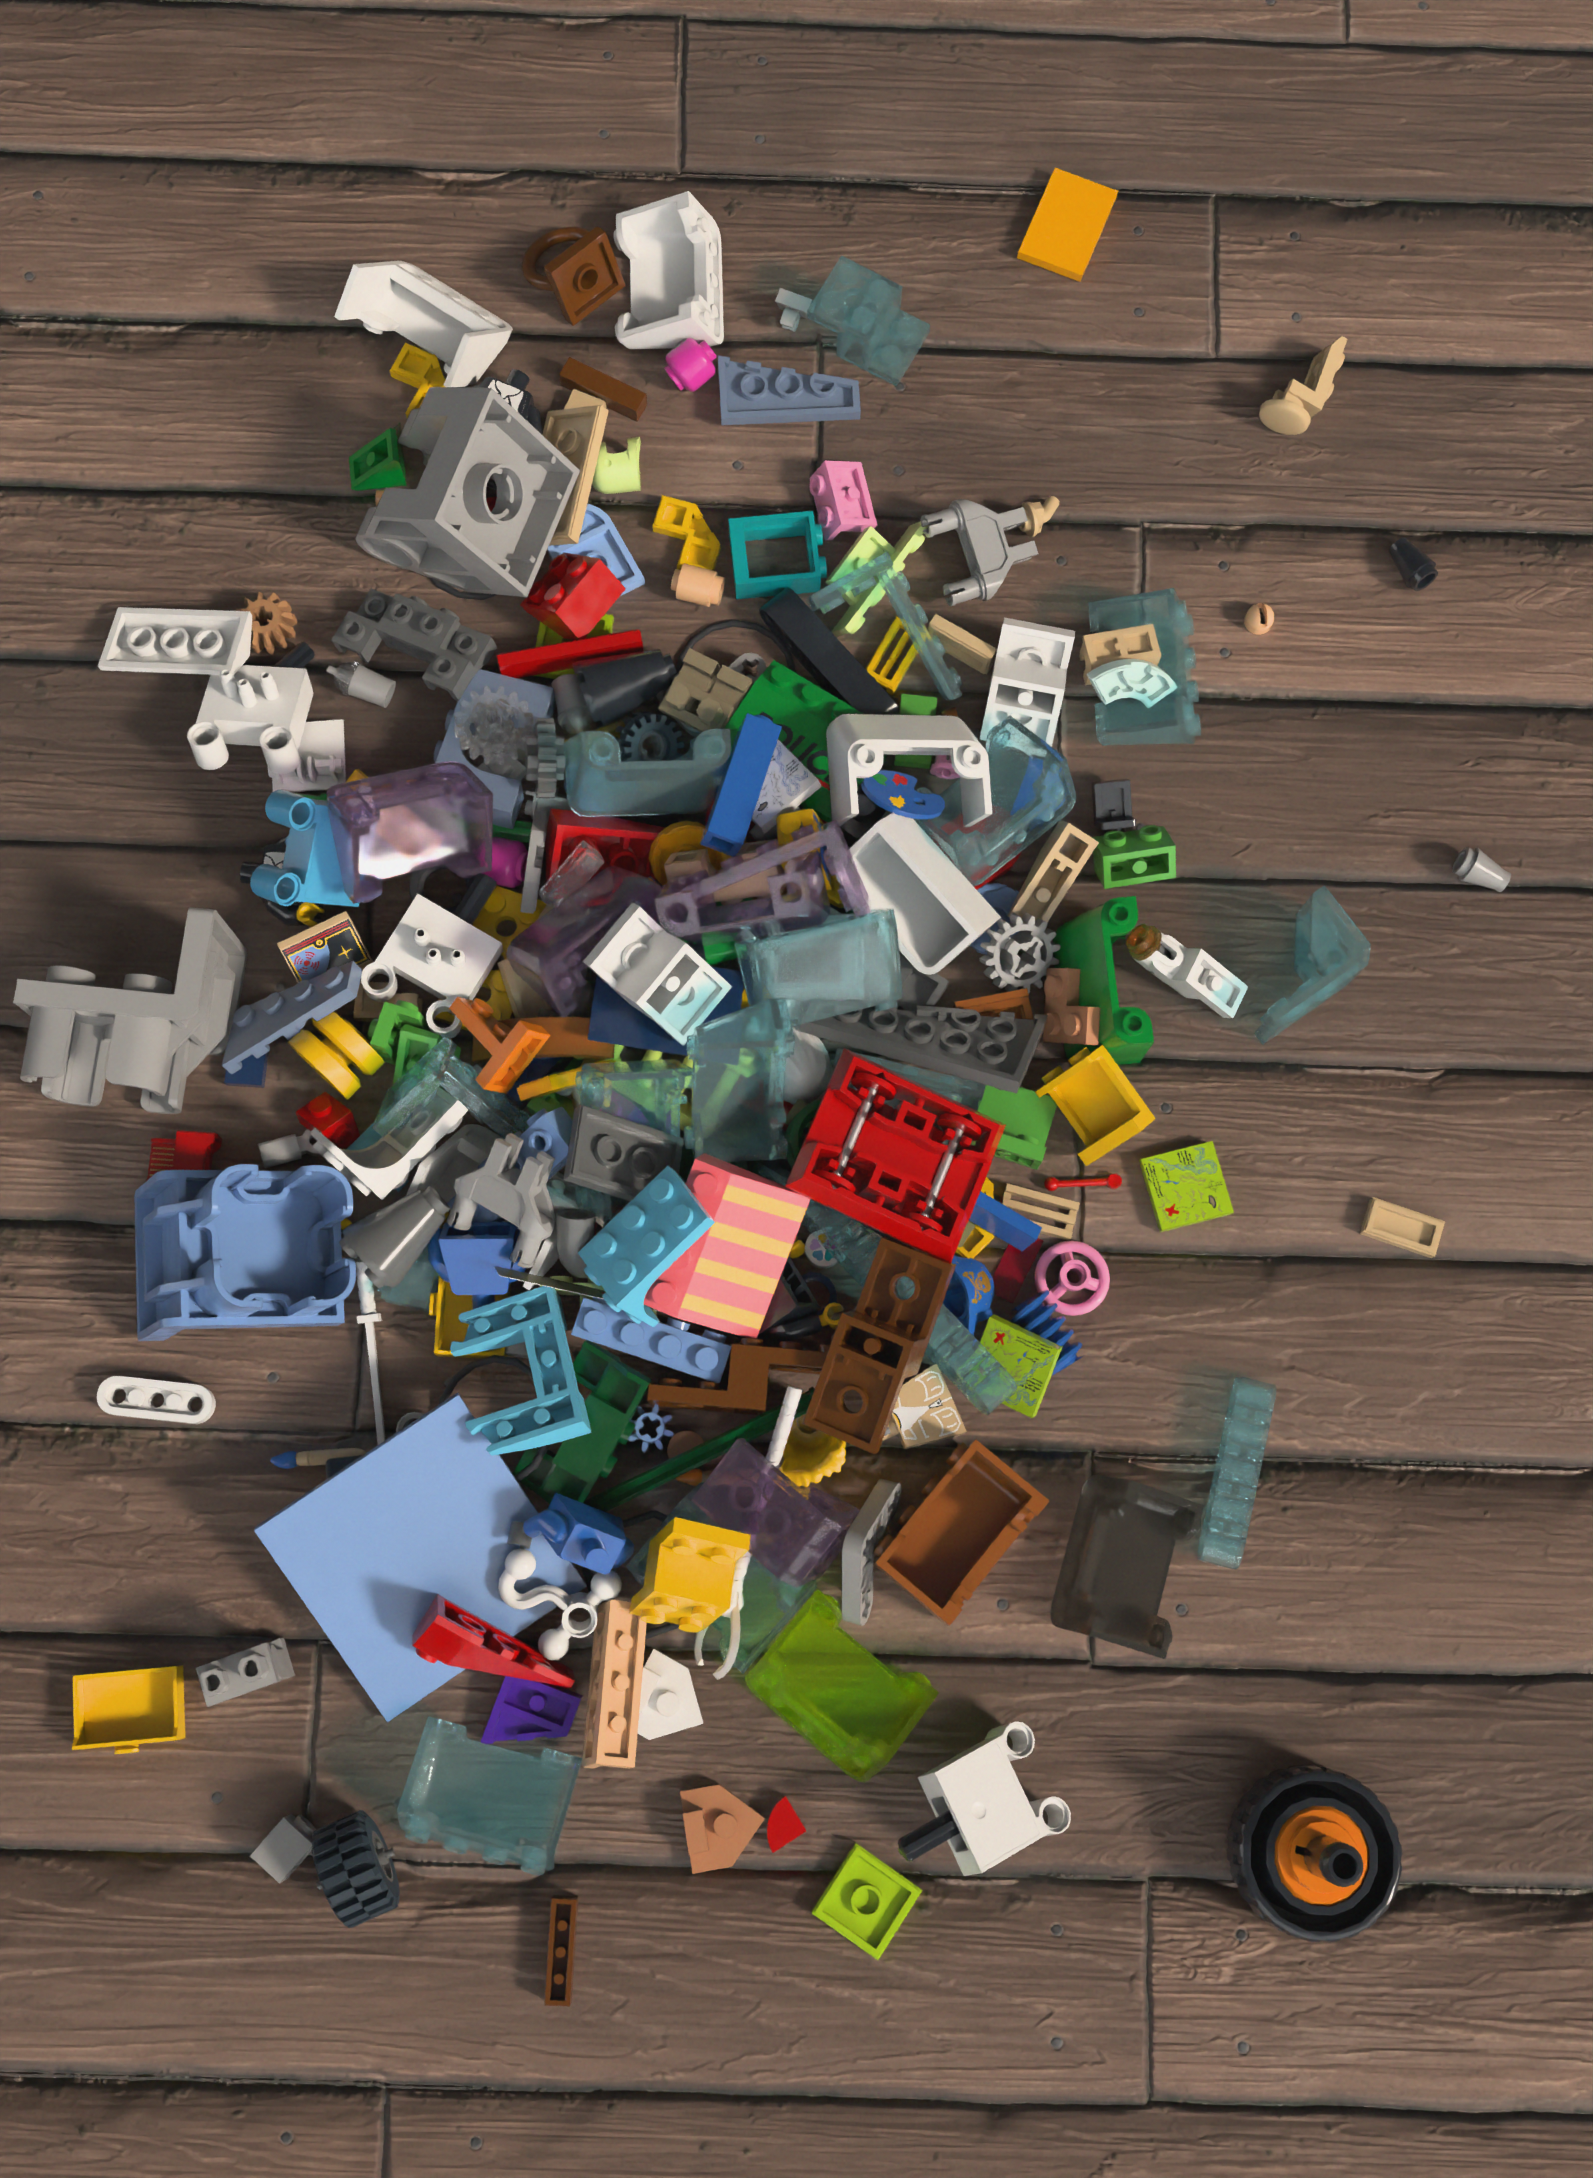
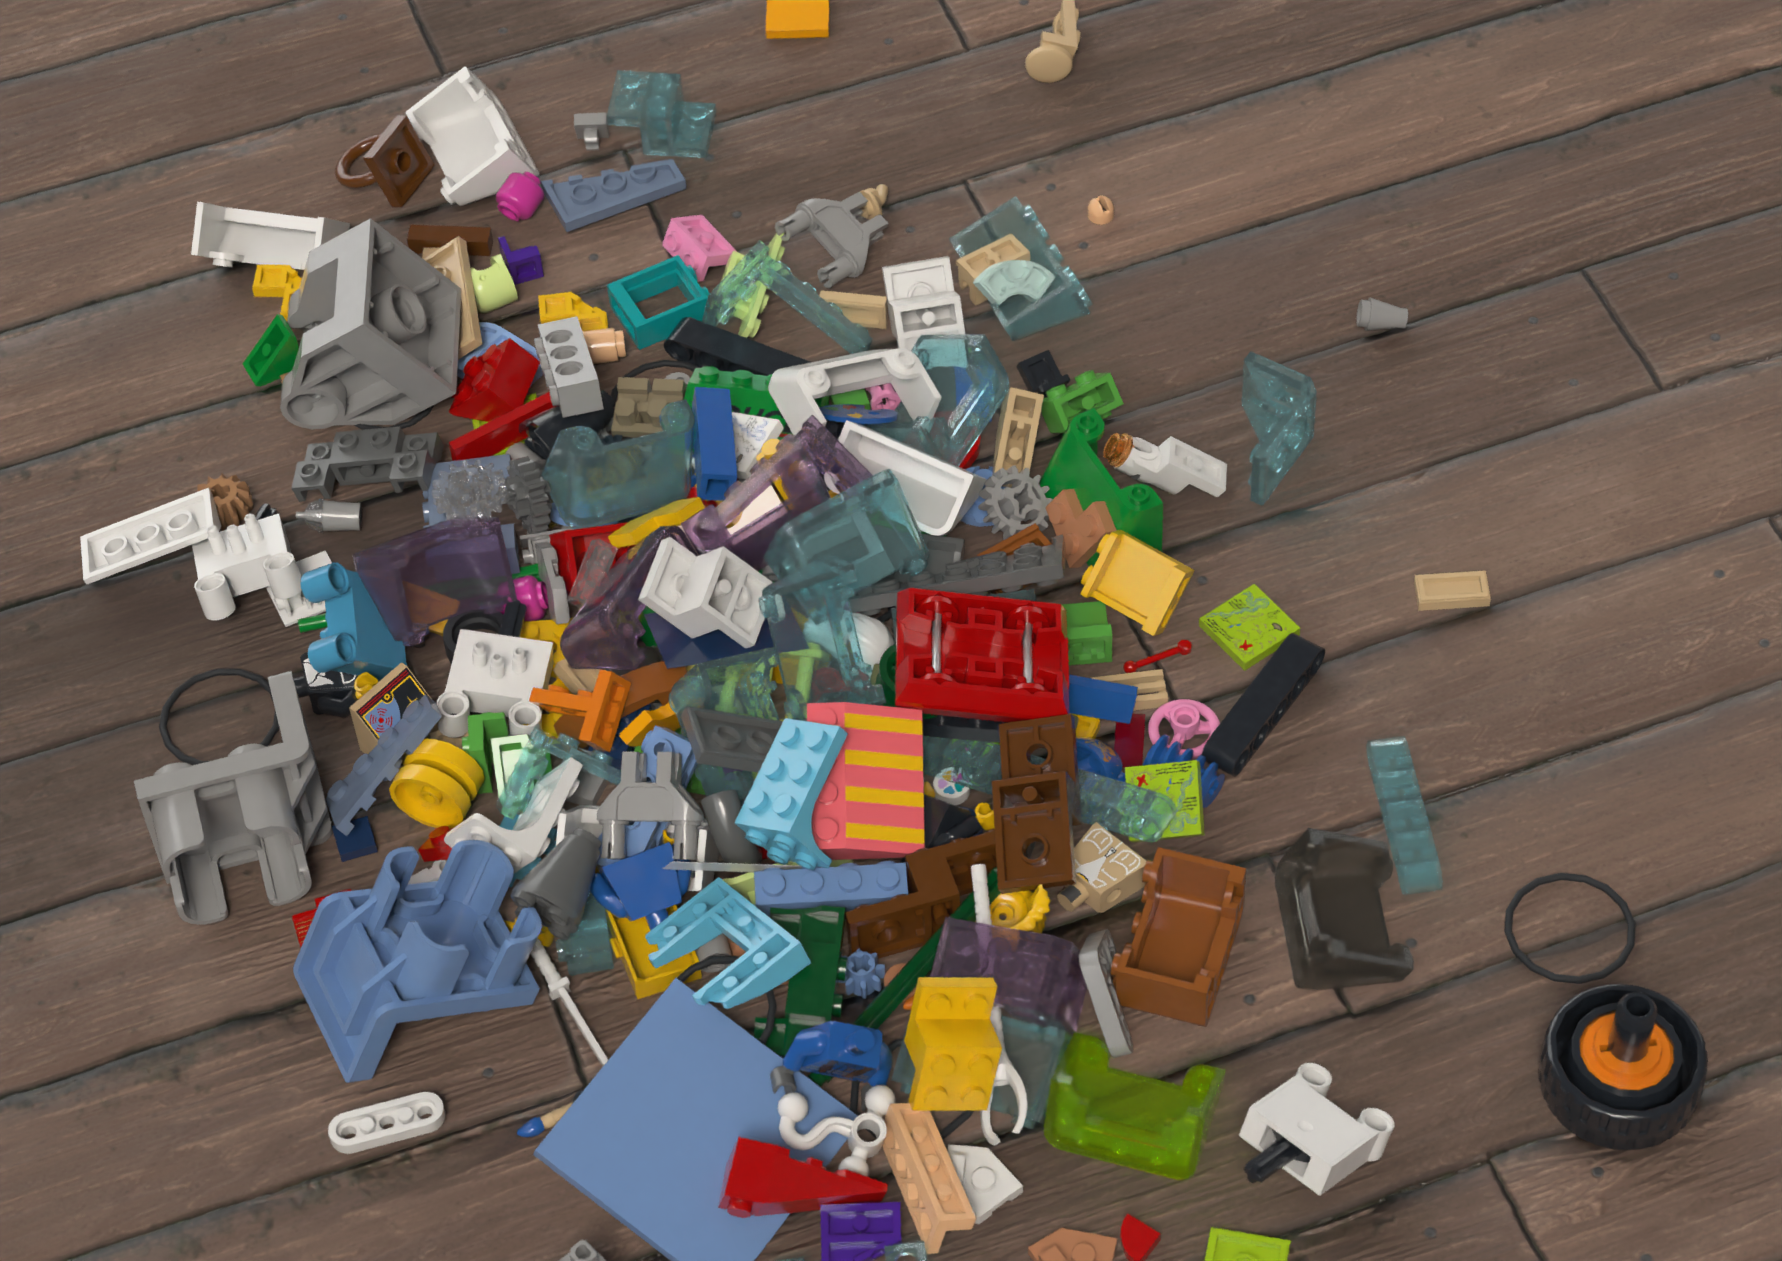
camera: 15 degrees left, 25 degrees down
(157, 821) = (203, 676): none -> black piece
(643, 619) = (568, 367): none -> light grey brick
(661, 445) = (522, 263): none -> dark purple panel
(670, 848) = (641, 527): none -> yellow tile
(881, 678) = (786, 335): yellow tile -> none
(1158, 1286) = (1263, 704): none -> black beam
(1396, 1643) = (1568, 978): none -> black piece
(1414, 566) = (1211, 129): black cone -> none

